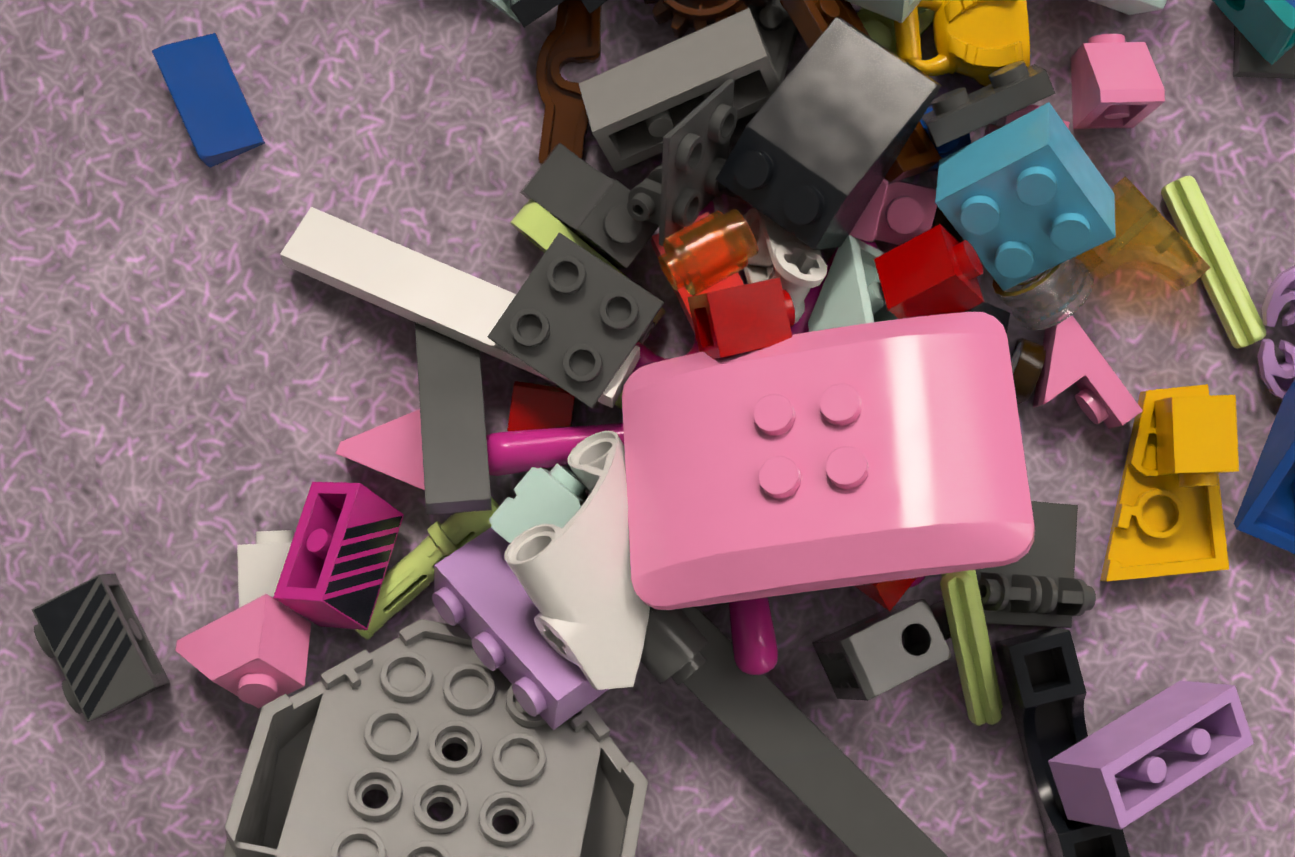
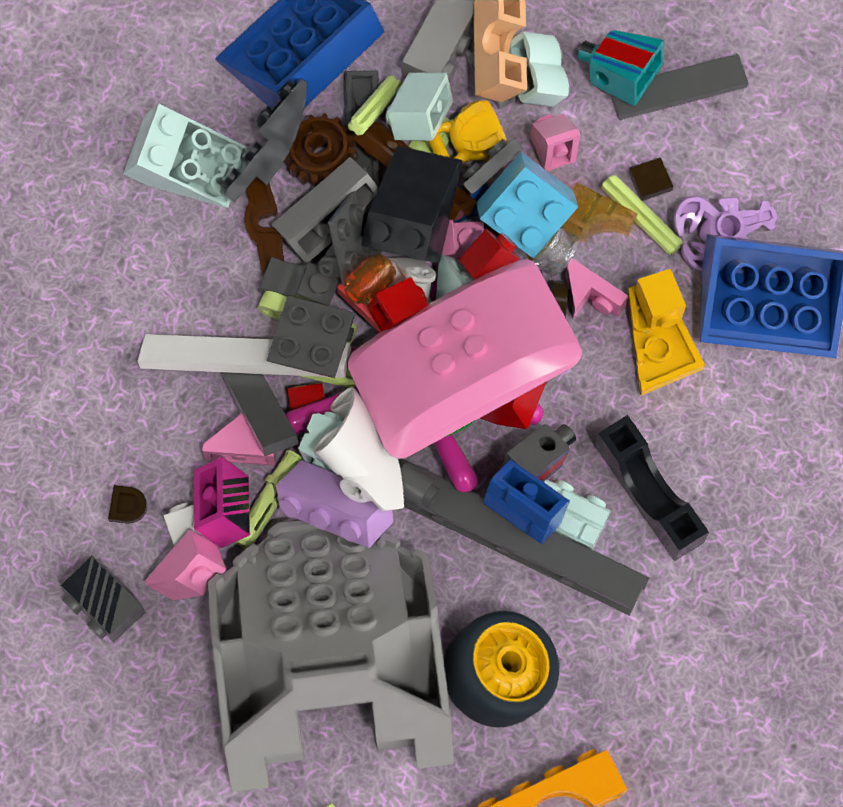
camera: 20 degrees left, 15 degrees down
(193, 493) = (127, 505): none -> dark brown tile
(208, 98) = (71, 296): blue slope -> none
(846, 737) = (526, 501): none -> blue brick
(910, 756) = (584, 516): none -> light aqua brick
(972, 646) = (580, 443): yellowish green axle -> none
(1042, 583) = (594, 396): dark grey hinge -> none
(1150, 753) = (693, 464): lavender brick -> none
(1251, 202) = (650, 179): none -> dark brown tile

